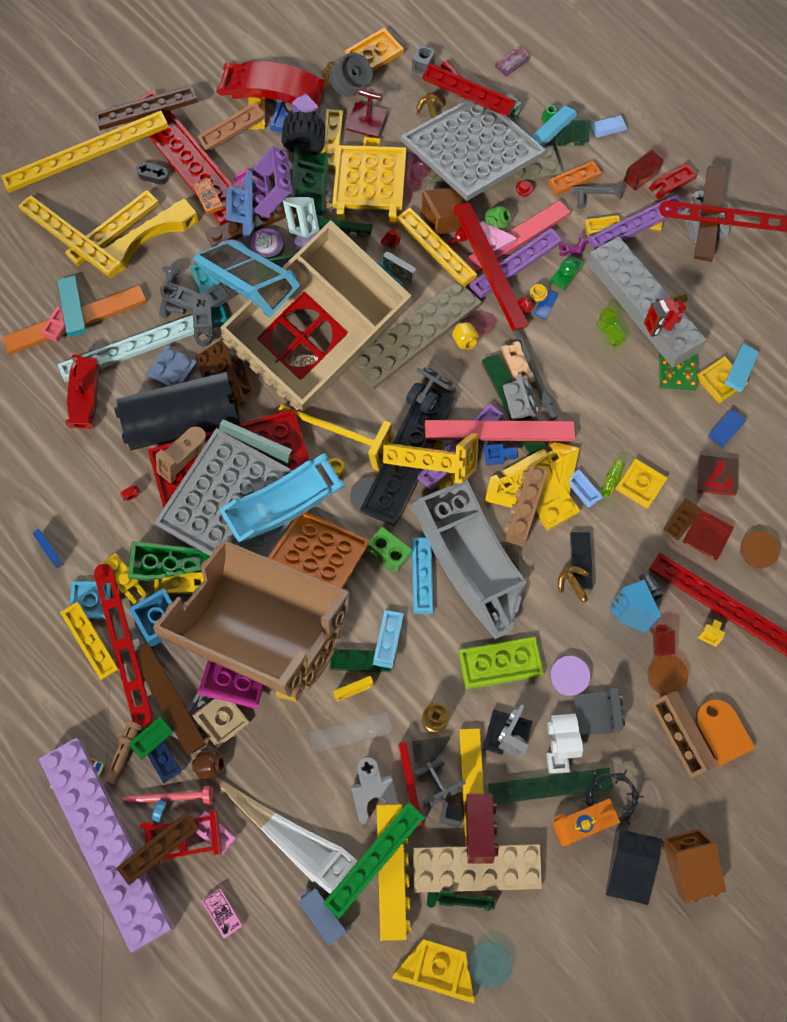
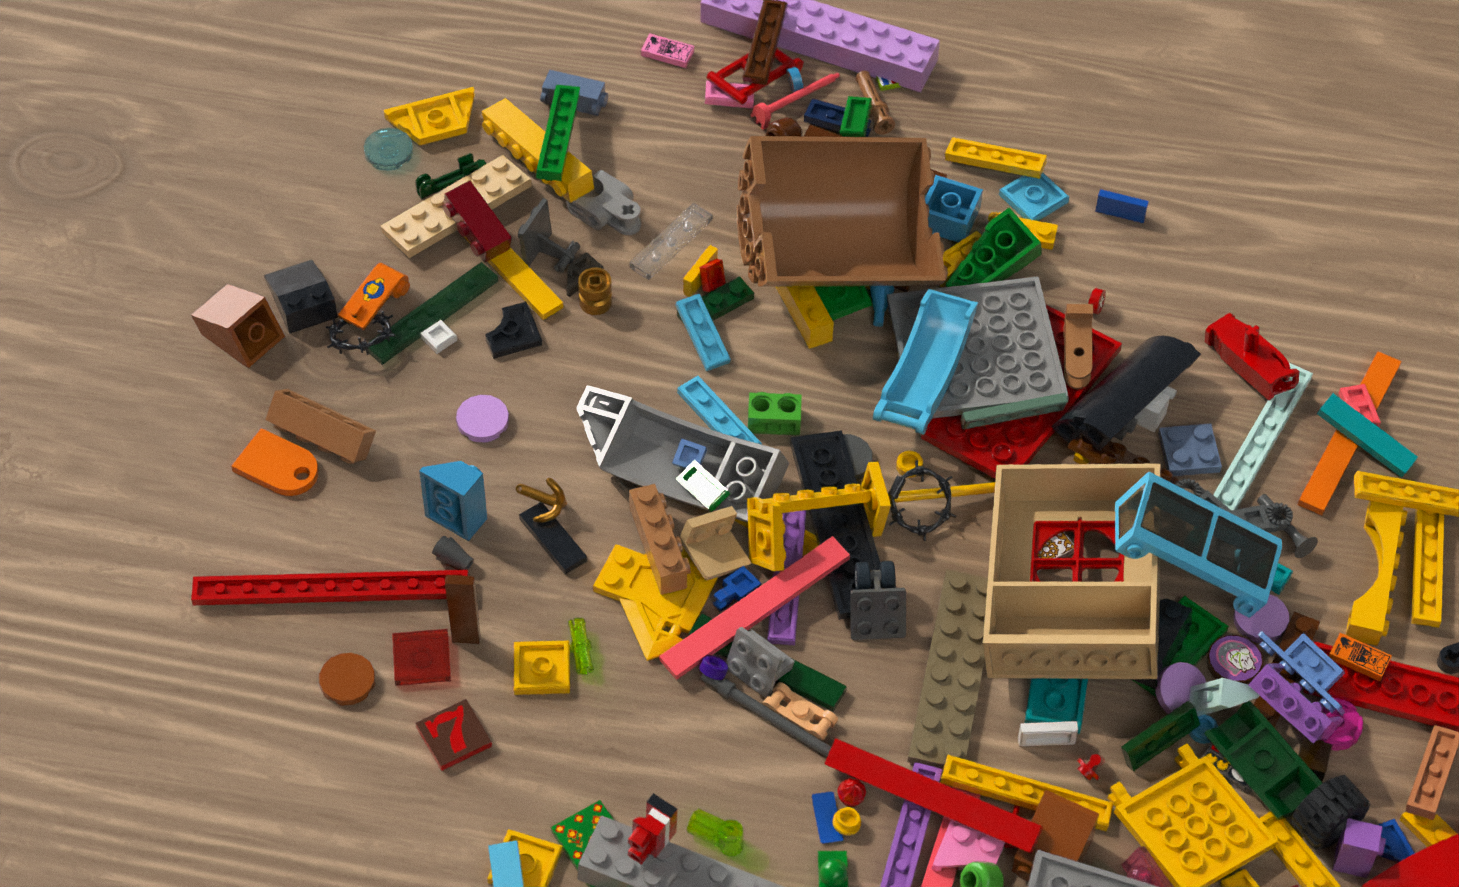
camera: 145 degrees right, 15 degrees down
(104, 575) = (1039, 213): red piece -> none
(312, 854) = (622, 127): white plate -> none
(320, 549) = (842, 351): orange plate -> none
(346, 436) = (896, 489): none -> black piece
(349, 677) = (712, 275): none -> red tile
(408, 776) = (579, 231): red tile -> none
(451, 814) = (512, 220): dark grey panel -> none
(465, 336) = (890, 698): yellow head -> none
(465, 551) = (687, 453): none -> medium blue plate
(474, 521) = (703, 486): none -> tile
(481, 323) = (891, 734): clear pink tile -> none
(495, 481) = (712, 543): none -> tan bracket
(500, 662) = (558, 392): lime tile -> none
(513, 745) = (500, 302): light grey bracket -> none
(547, 413) = (714, 667): none -> dark purple tile
(565, 736) = (447, 354): white brick -> none
(584, 489) = (606, 617): light blue tile -> none
(599, 712) = (426, 399): dark grey bracket -> none
(663, 640) = (404, 509): clear red bracket -> none
(667, 674) = (374, 481): clear orange tile -> none
(712, 633) = (350, 545): yellow tile -> none
(727, 428) = (478, 802): blue tile -> none

